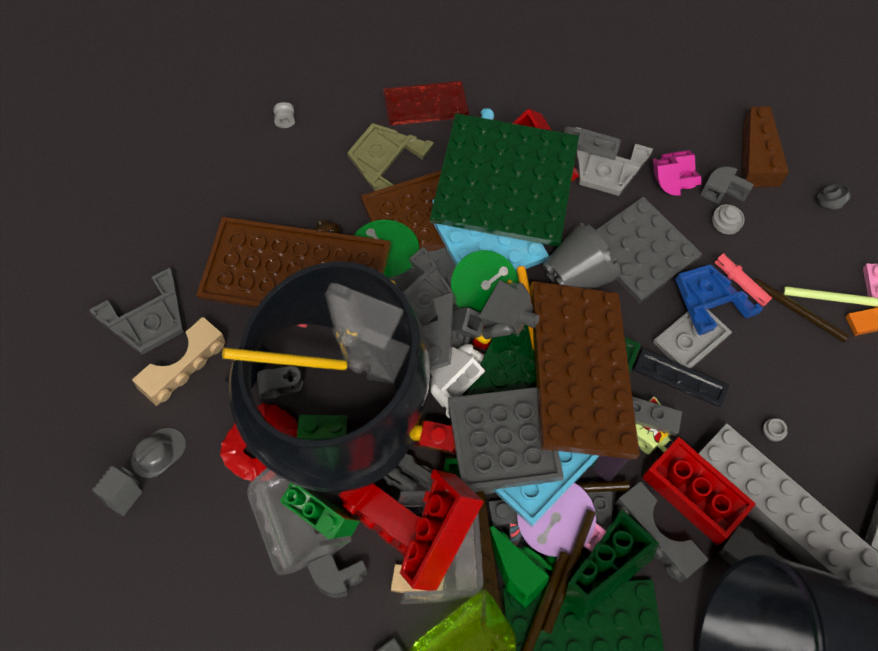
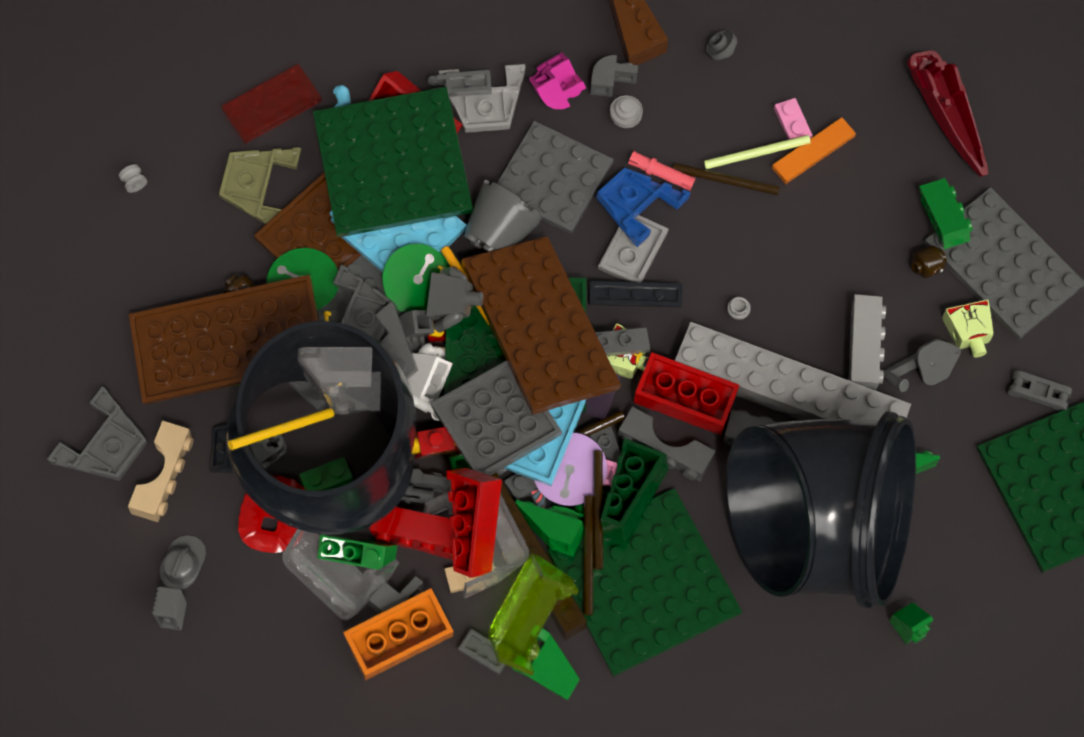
camera: 20 degrees left, 5 degrees up
(318, 613) = (398, 634): none -> orange slope

